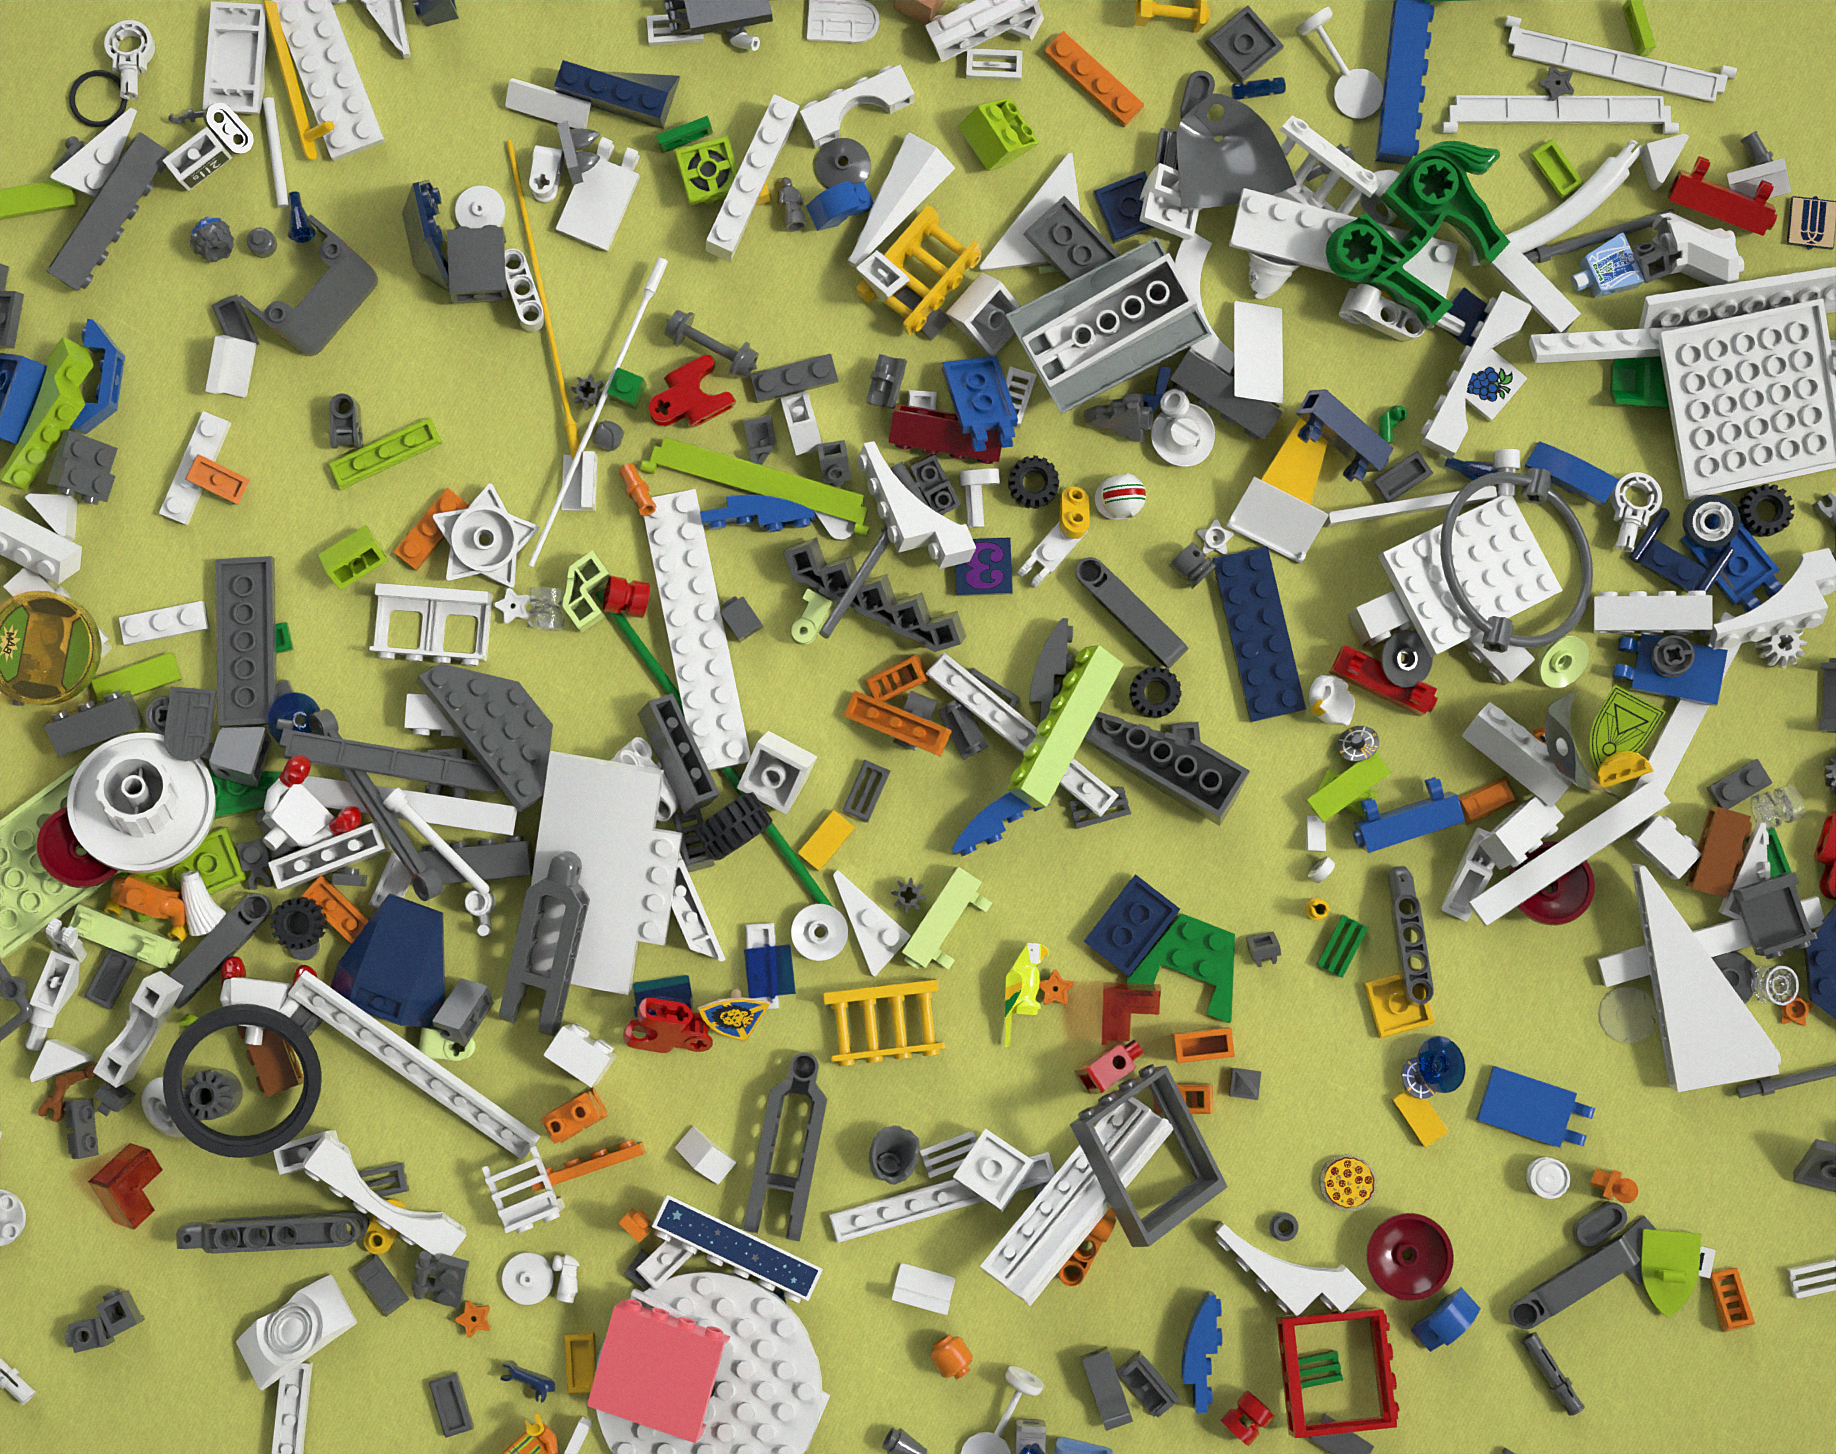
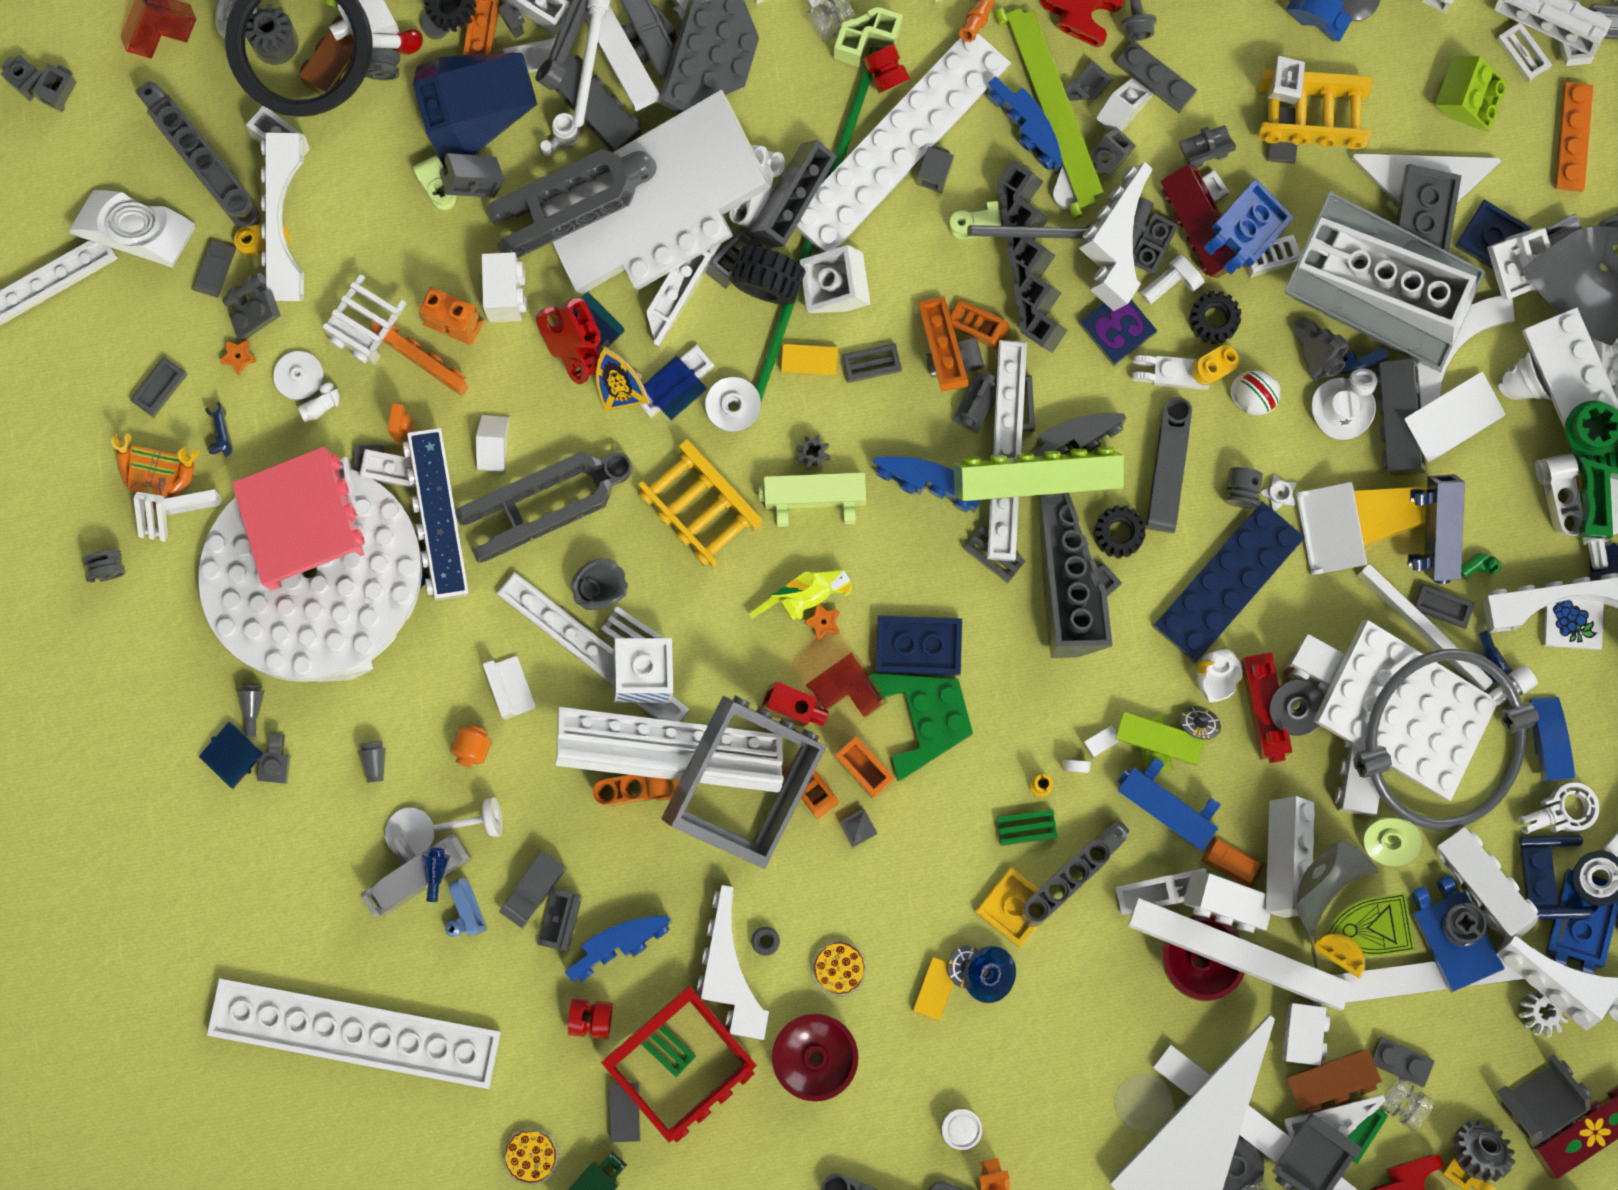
camera: 55 degrees right, 5 degrees down
(401, 1177) = (308, 224): dark grey tile -> none
(413, 1065) = (403, 166): white plate -> none
(580, 1362) = (263, 457): yellow tile -> none
(876, 931) = (766, 448): white wing -> none
(913, 176) = (1383, 51): white wedge -> none
(982, 313) = (1314, 179): white slope -> none
(1264, 946) = (979, 762): dark grey tile -> none
(1448, 1321) = (785, 1126): blue brick -> none
(1531, 1108) = (1008, 1076): blue tile -> none

